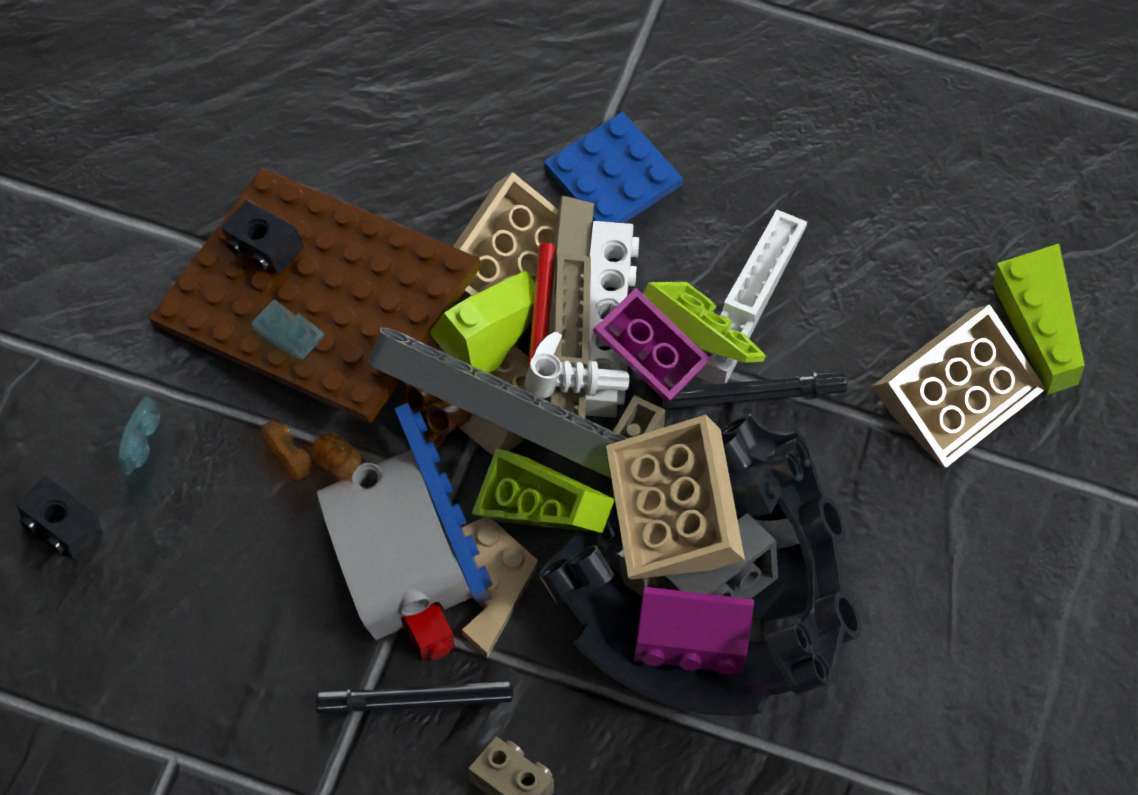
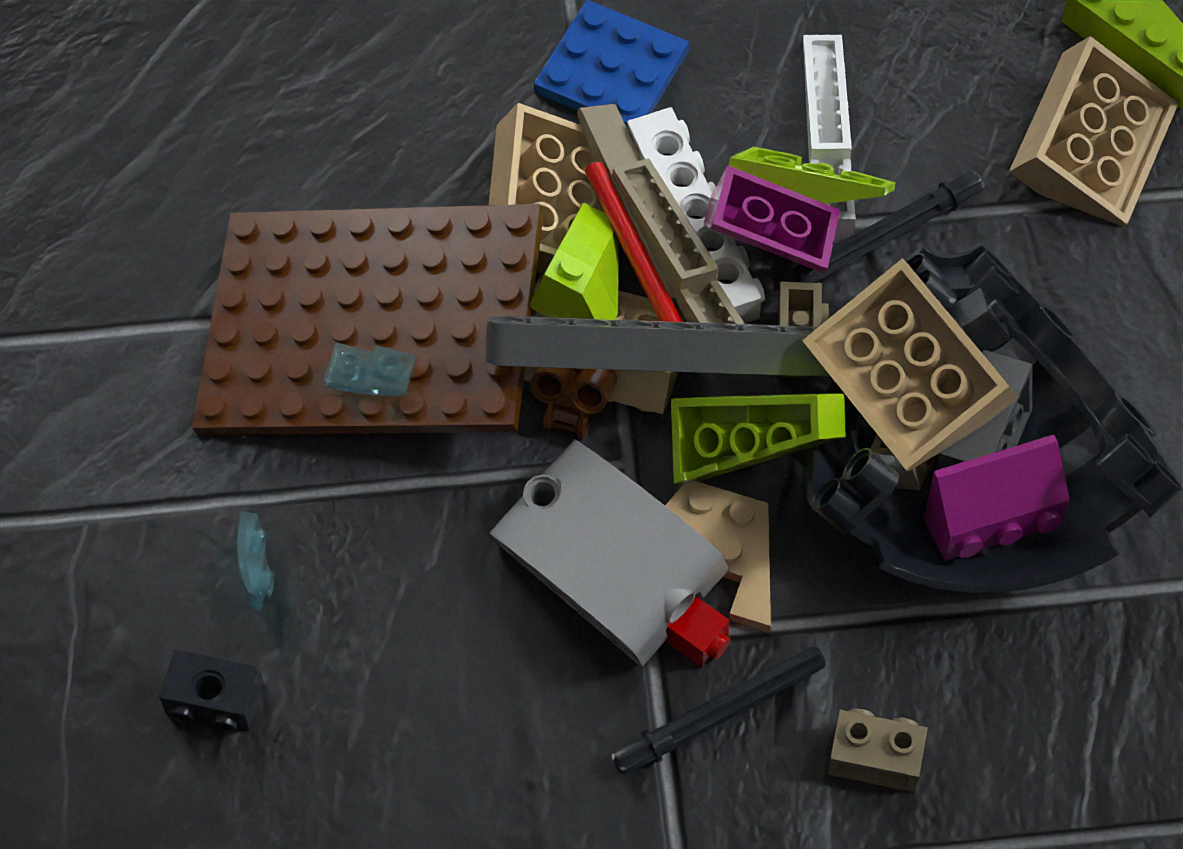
camera: 25 degrees left, 0 degrees up
(262, 237) = (264, 271): black brick -> none
(293, 459) = (418, 500): clear orange plate -> none
(335, 455) = (490, 486): clear orange plate -> none
(450, 515) = (567, 416): blue plate -> none
(566, 376) = (684, 291): white piece -> none

